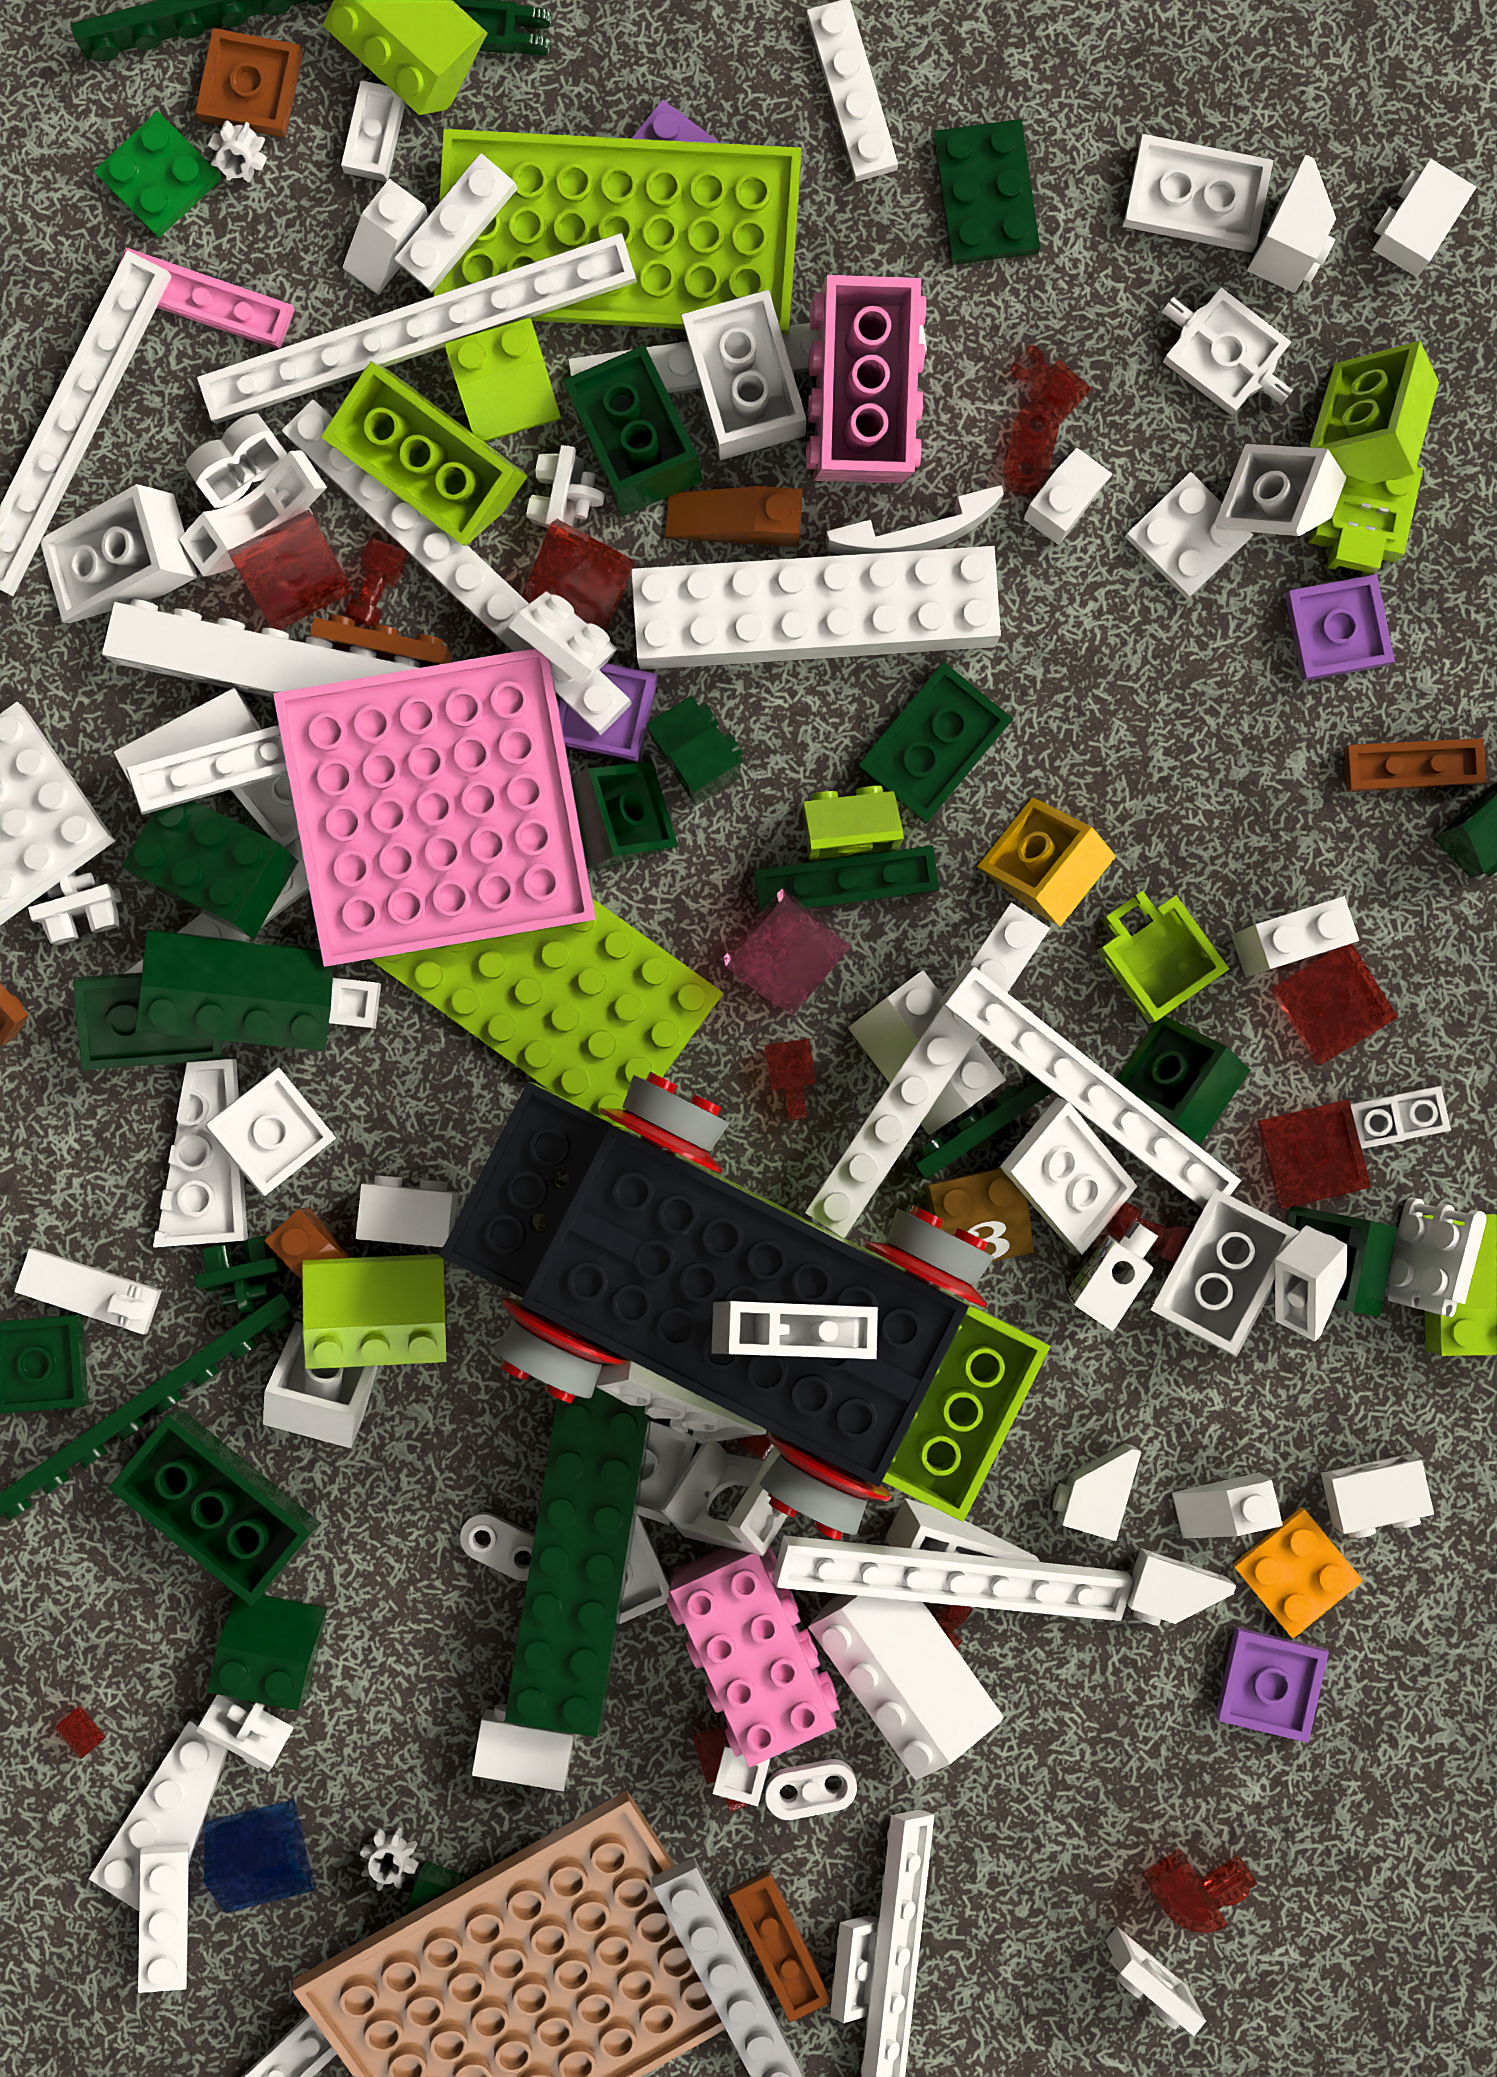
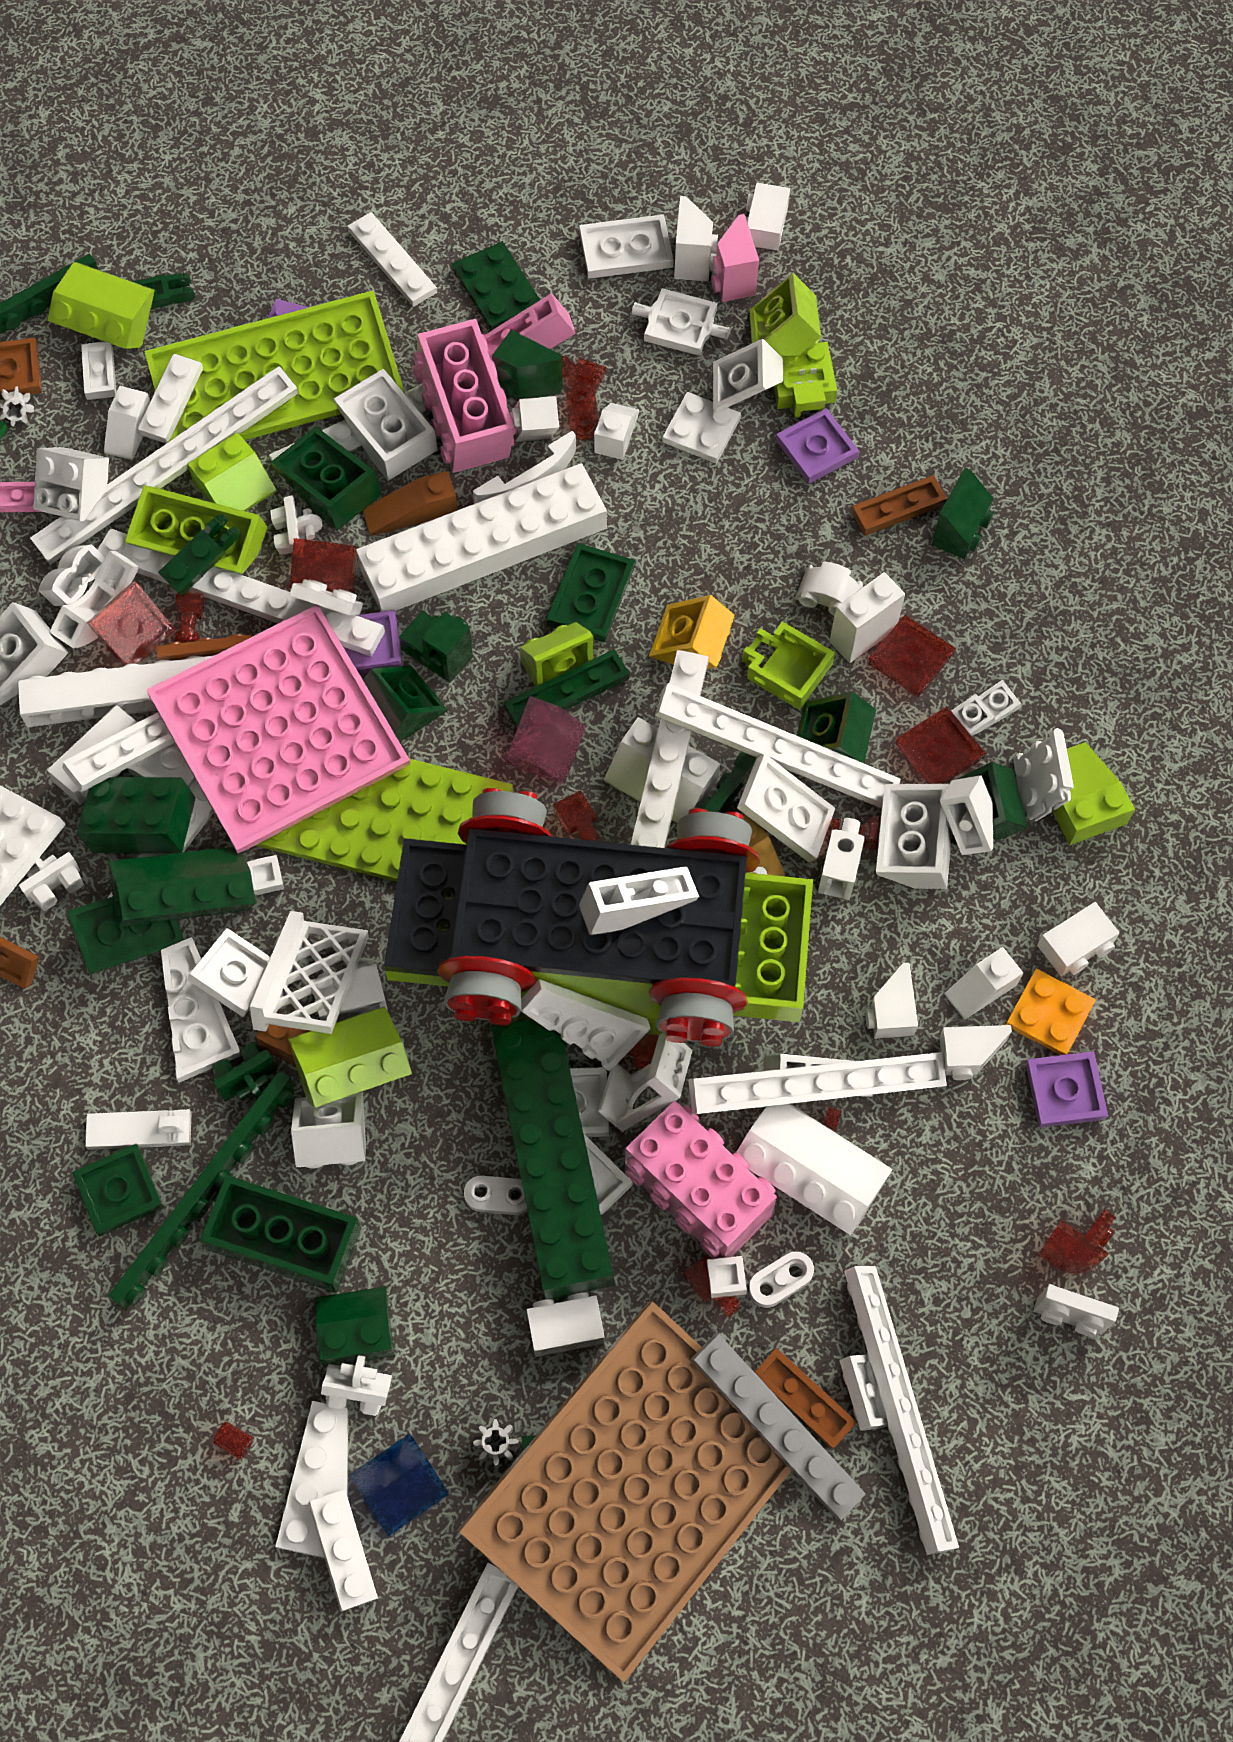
camera: 20 degrees left, 20 degrees down
(272, 312) = (69, 481): none -> white slope
(321, 1170) = (280, 973): none -> white fence
(410, 502) = (198, 555): none -> dark green hinge
(951, 456) = (535, 418): none -> white brick
(972, 358) = (527, 368): none -> dark green slope
(1003, 291) = (542, 322): none -> bright pink slope
(1262, 857) = (826, 586): none -> white cylinder
(1345, 289) = (736, 263): none -> bright pink slope

